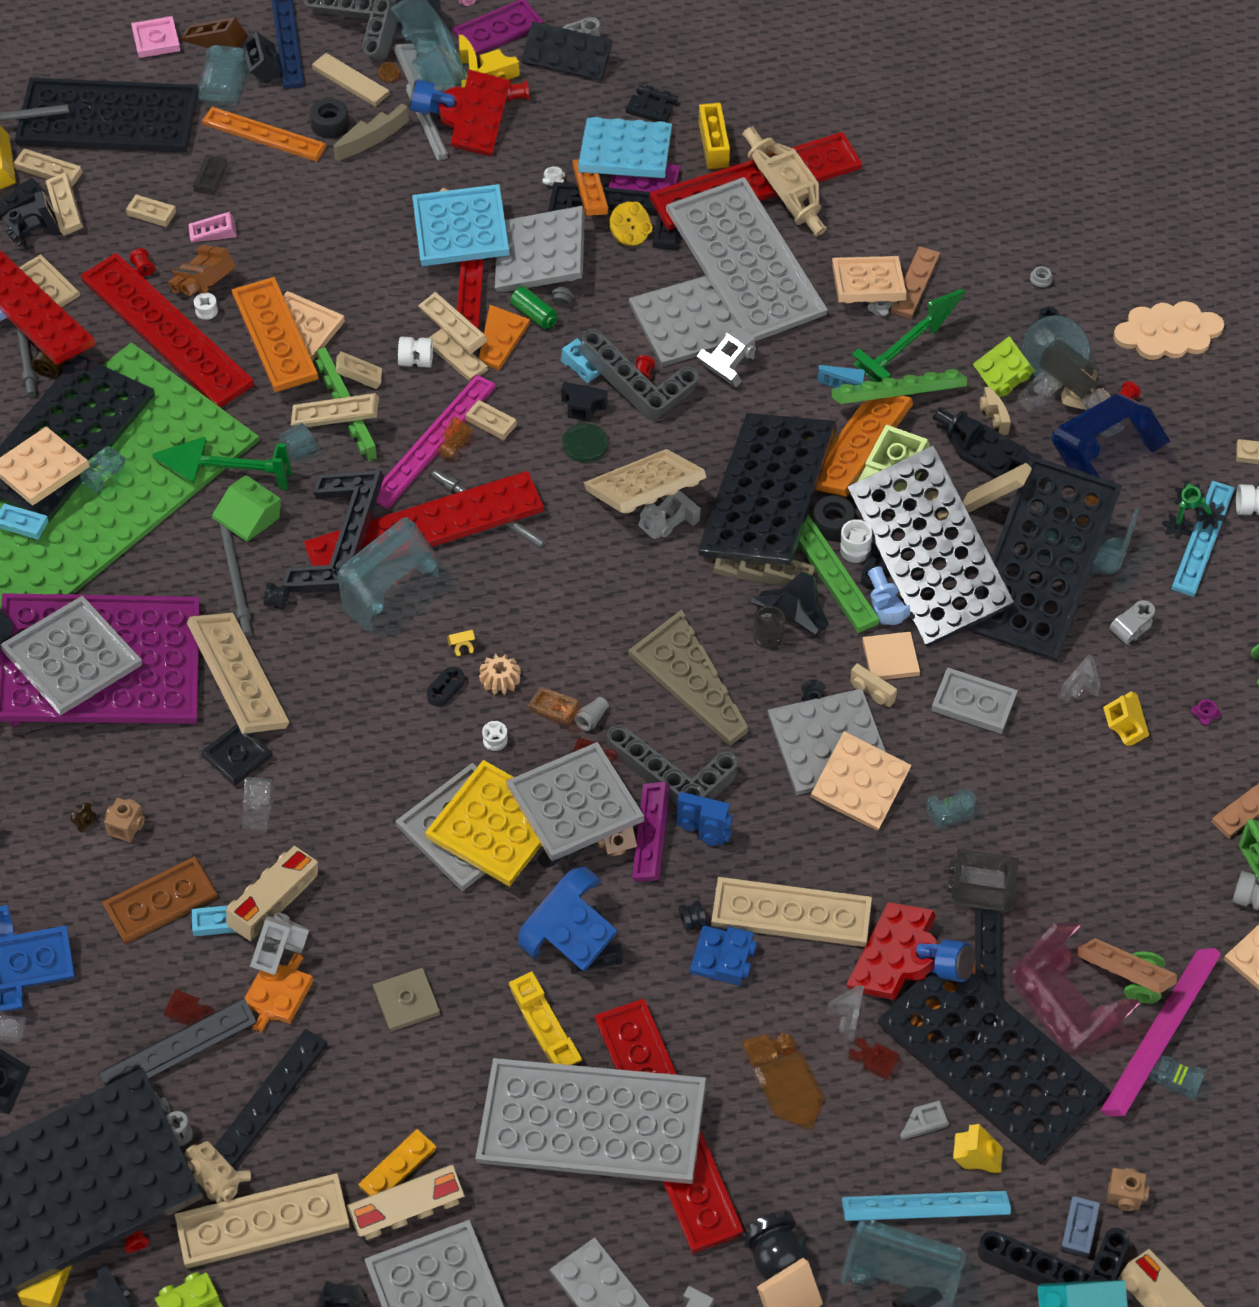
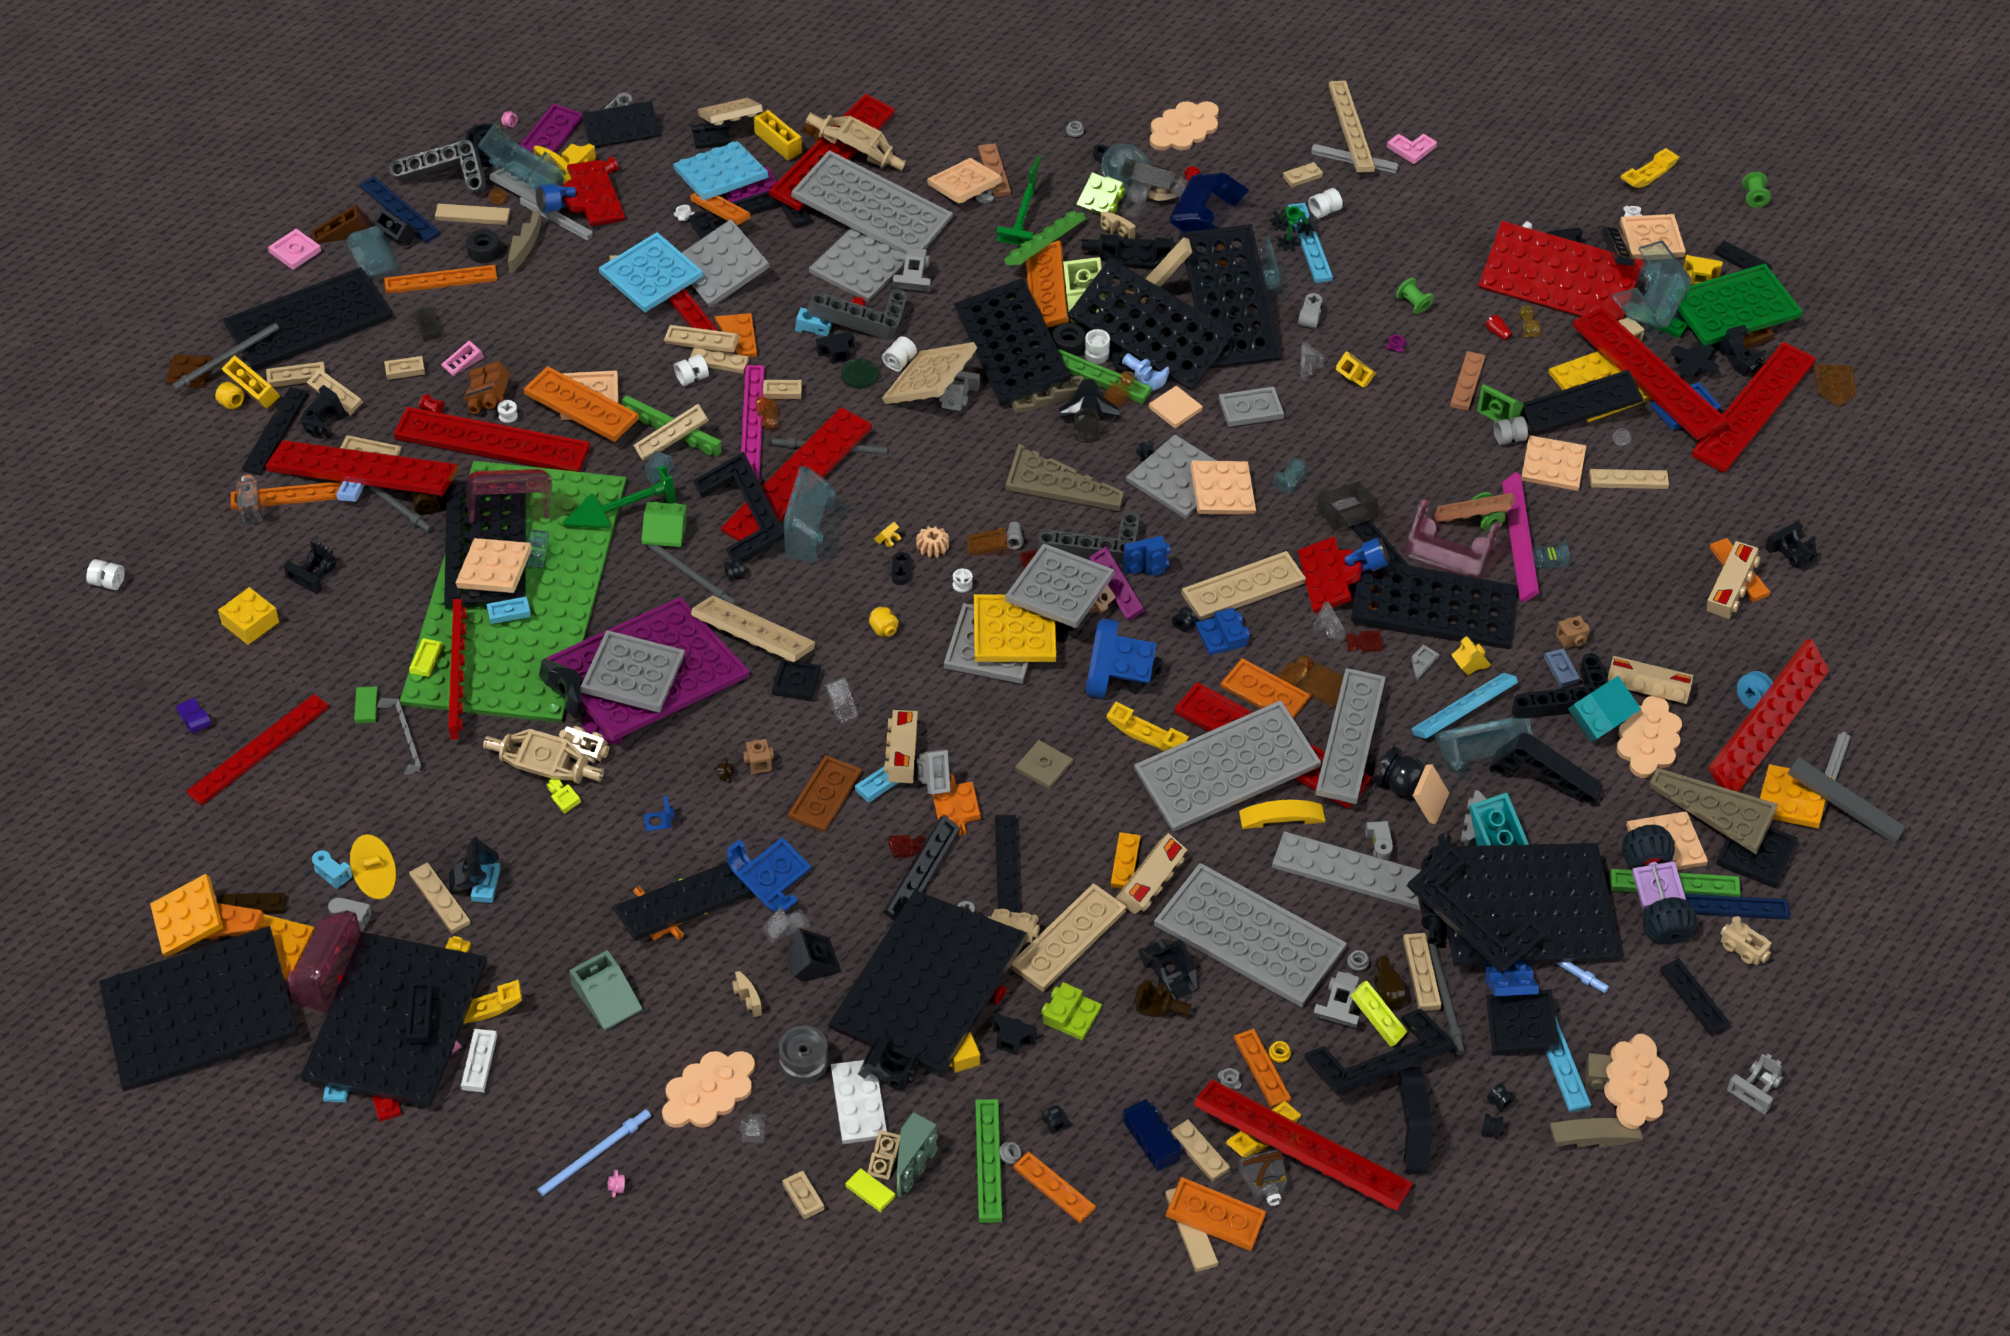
camera: 35 degrees left, 5 degrees down
(113, 385) = (509, 482): none -> clear pink windscreen
(358, 370) = (662, 400): tan plate -> none
(373, 738) = (883, 621): none -> yellow head
(534, 307) = (748, 303): green brick -> none
(562, 296) = (761, 287): dark grey plate -> none
(612, 1214) = (1281, 811): none -> yellow slope
(637, 218) = (769, 218): yellow plate -> none
(641, 441) = (899, 354): none -> white wheel
(684, 86) = (730, 110): none -> tan plate
(715, 1052) = (1263, 688): none -> orange tile
(756, 1167) = (1350, 736): none -> light grey plate
(835, 605) = (1116, 392): none -> clear orange plate
(839, 376) = (1001, 249): dark azure slope -> none
(873, 685) = (1181, 428): tan plate -> none

